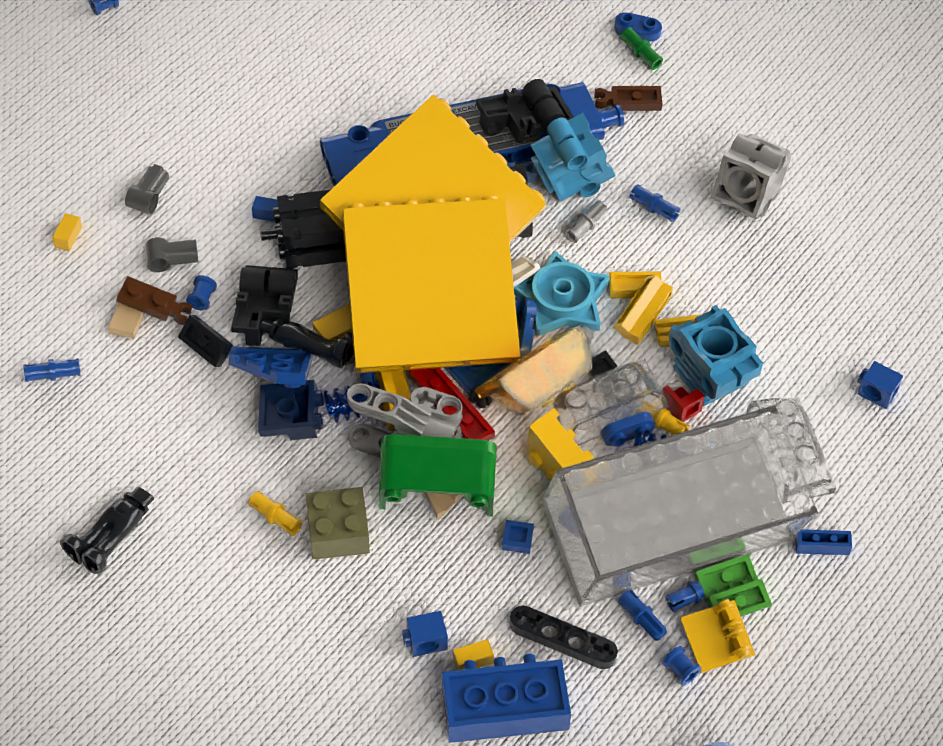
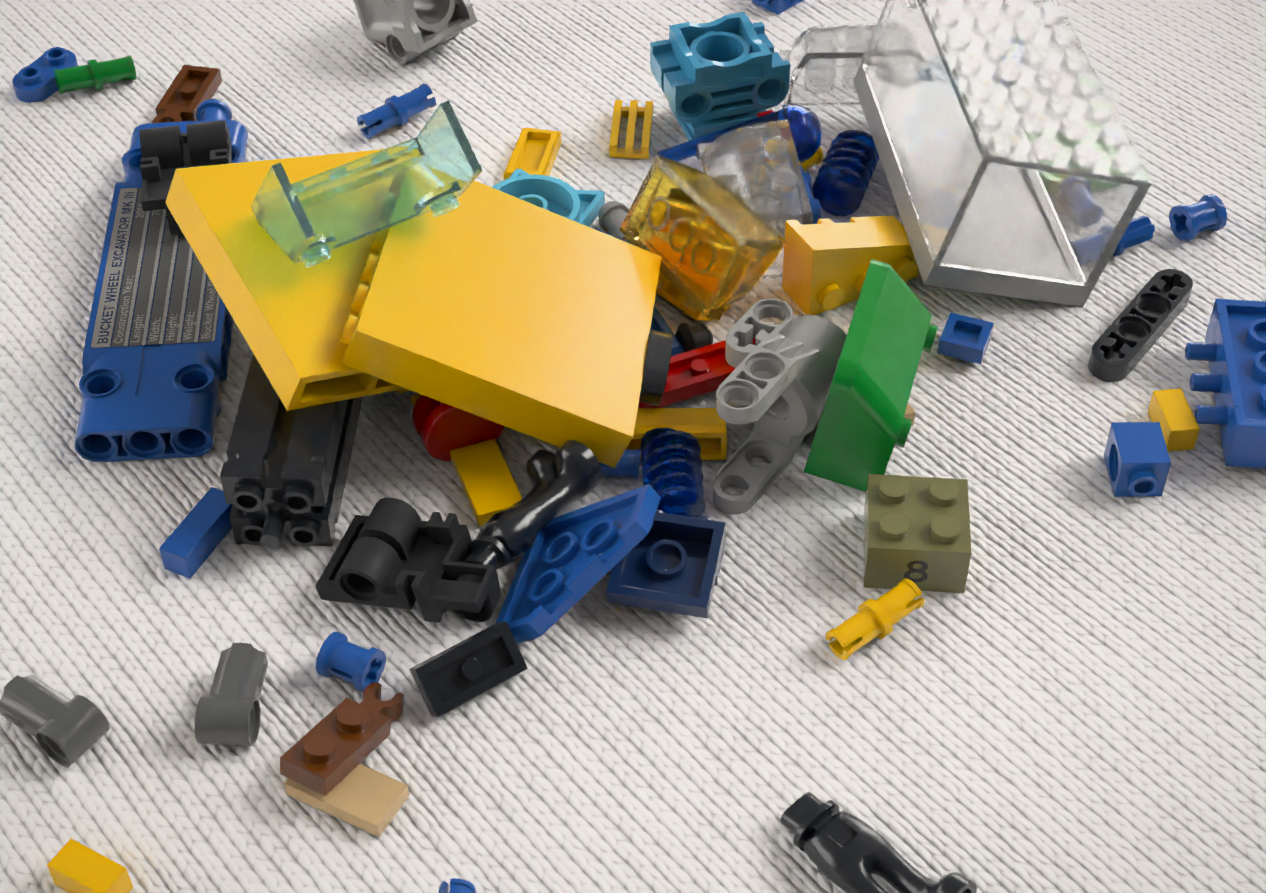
camera: 75 degrees left, 10 degrees down
(429, 373) = (656, 367): none -> black beam
(431, 174) = (369, 192): none -> clear light blue windscreen
(571, 159) = (292, 121): dark azure piece -> none
(643, 309) = (592, 146): yellow piece -> none
(669, 405) = (803, 123): none -> clear blue piece
(717, 636) = (1165, 169): yellow hinge -> none

